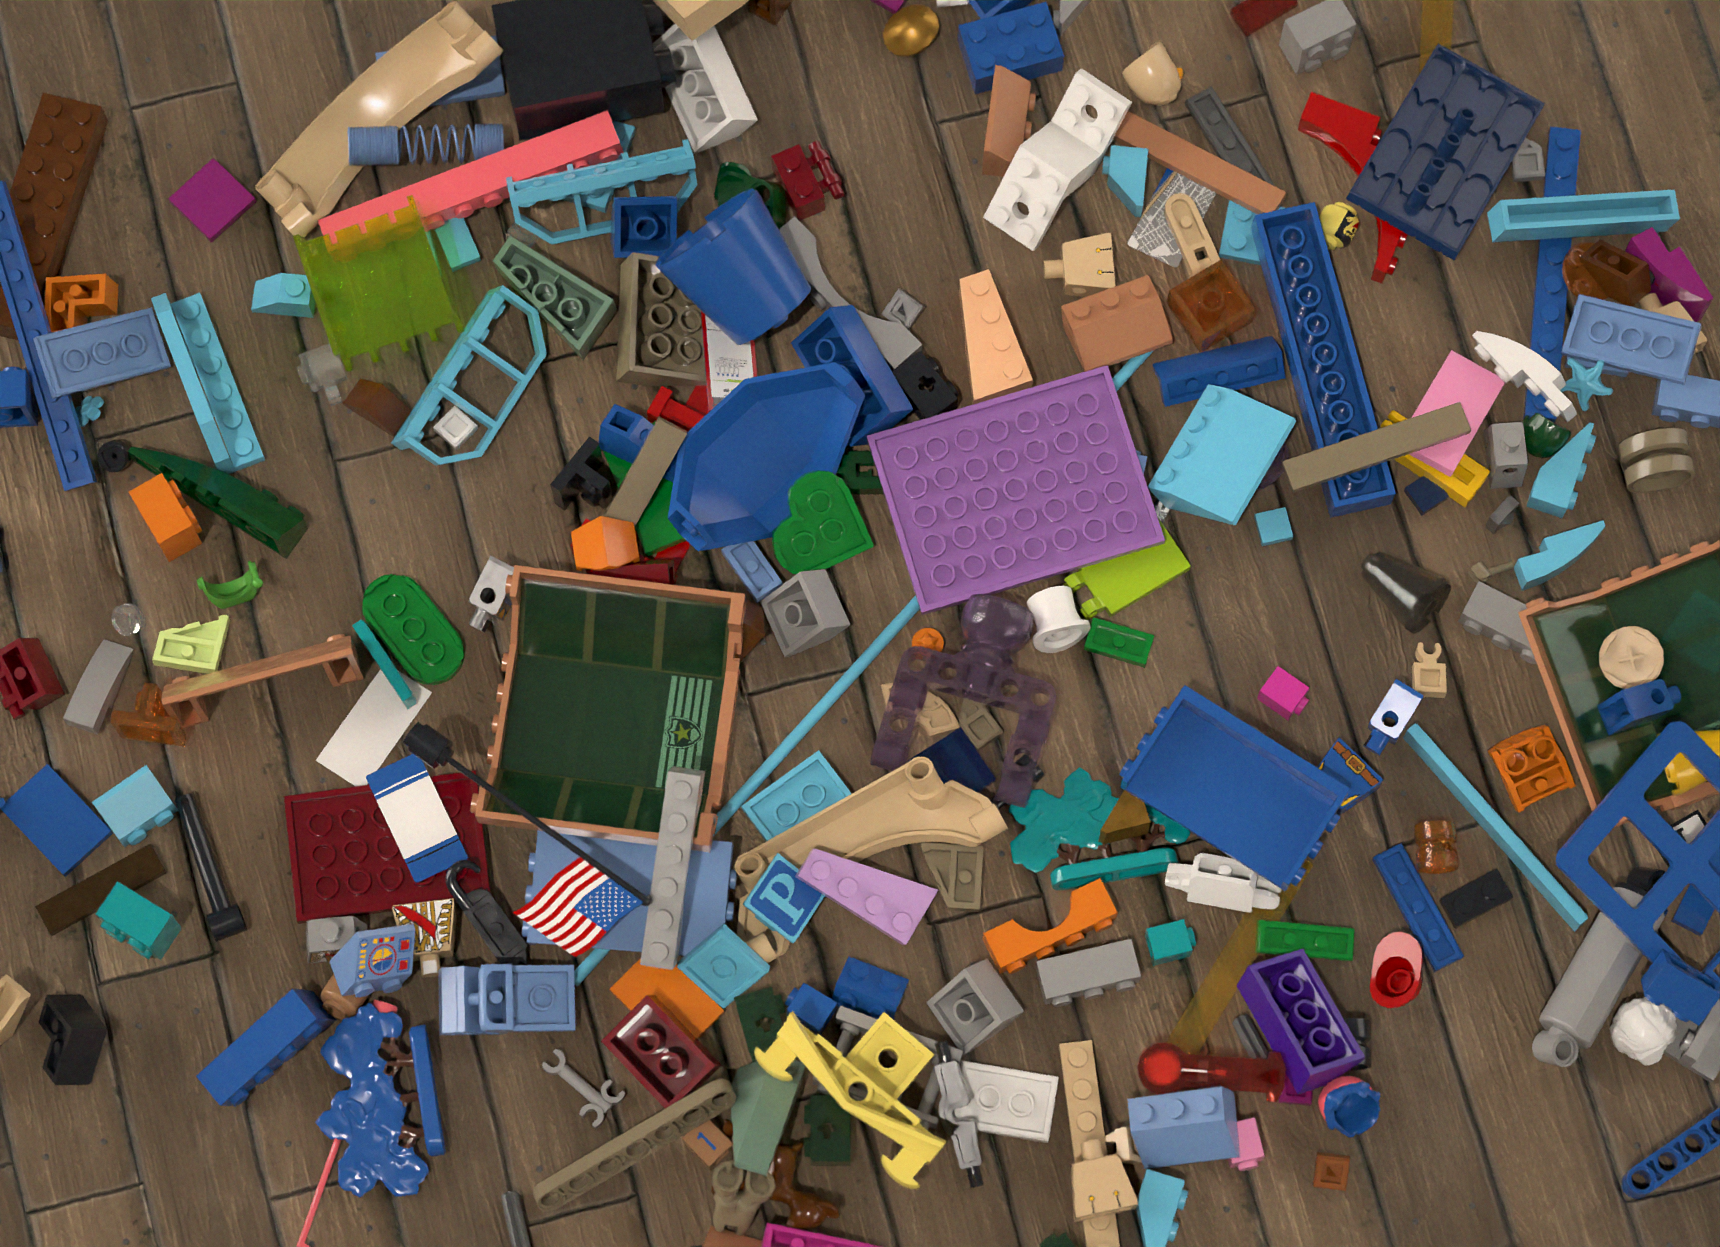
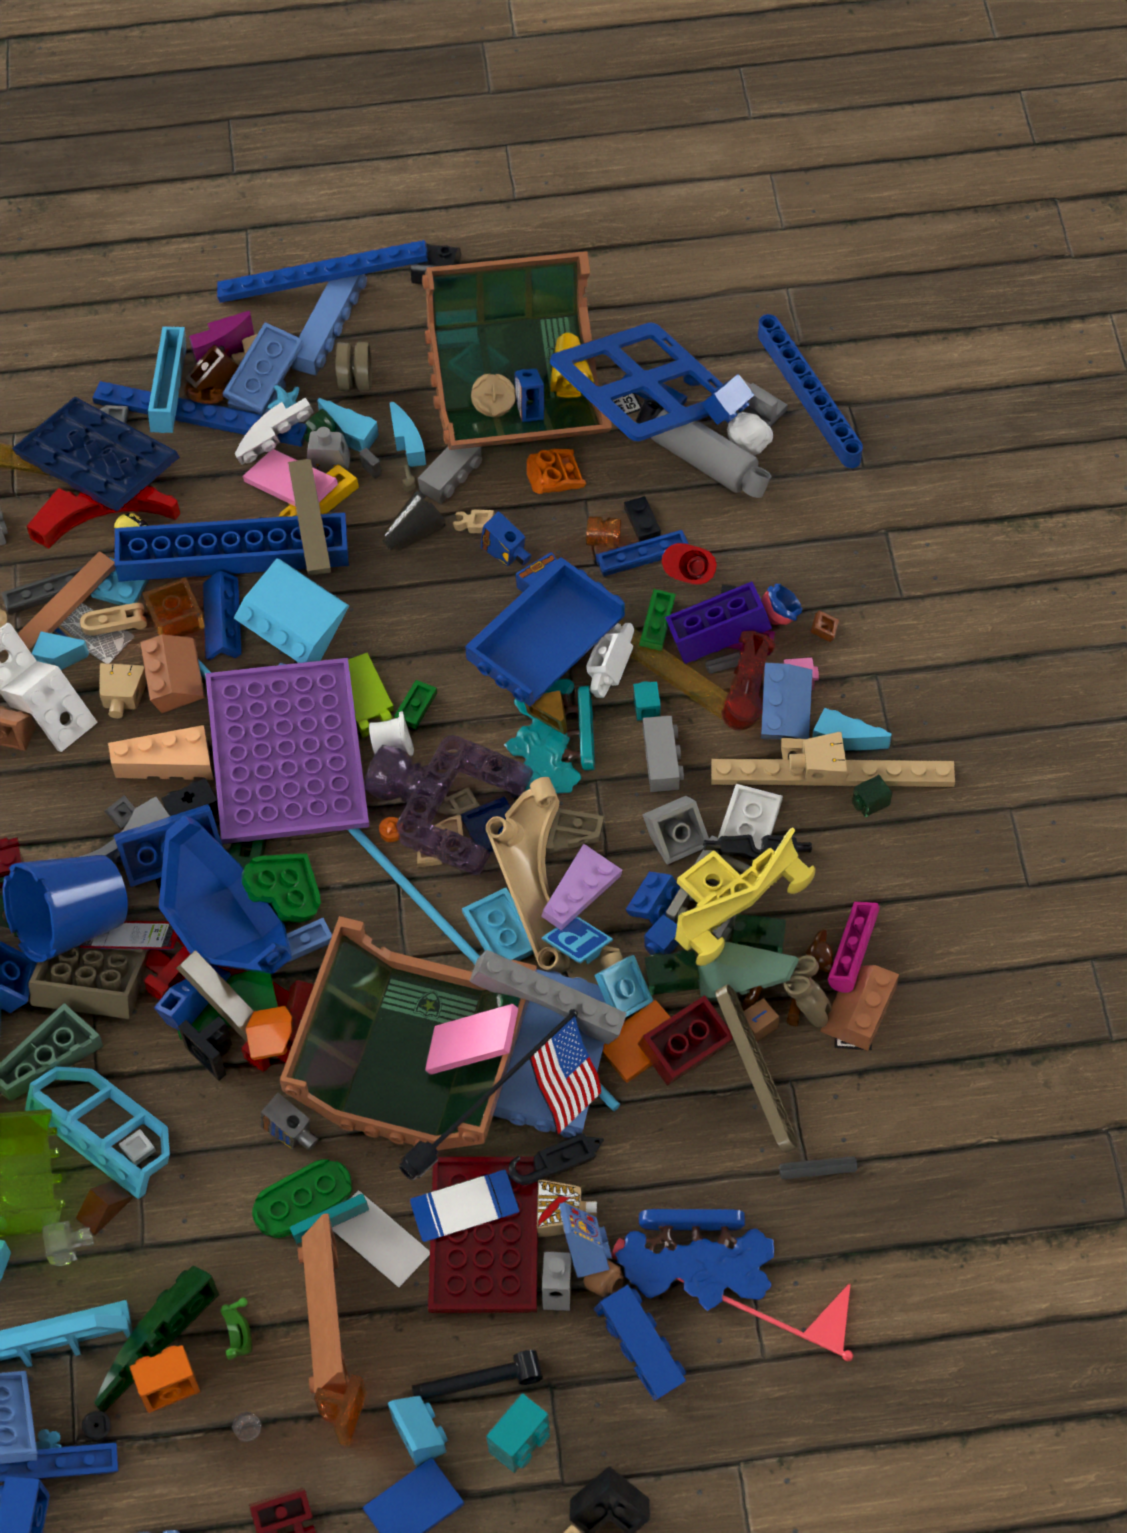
camera: 80 degrees left, 15 degrees down
(88, 895) = (481, 1473): dark brown tile -> none
(98, 687) = (302, 1455): light grey slope -> none
(193, 647) = (282, 1373): yellowish green wing -> none
(506, 999) = (626, 1153): medium blue piece -> none
(600, 1102) = (713, 1097): light grey bar -> none
(613, 786) = (472, 1039): none -> bright pink tile
(804, 612) = (351, 900): light grey slope -> none
(1014, 945) = (615, 749): orange arch -> none
(1273, 526) = (351, 597): medium azure tile -> none
(1284, 694) = (474, 607): dark pink brick -> none
(1425, 494) = (345, 505): dark blue tile -> none
(1495, 827) = (596, 496): medium azure tile -> none

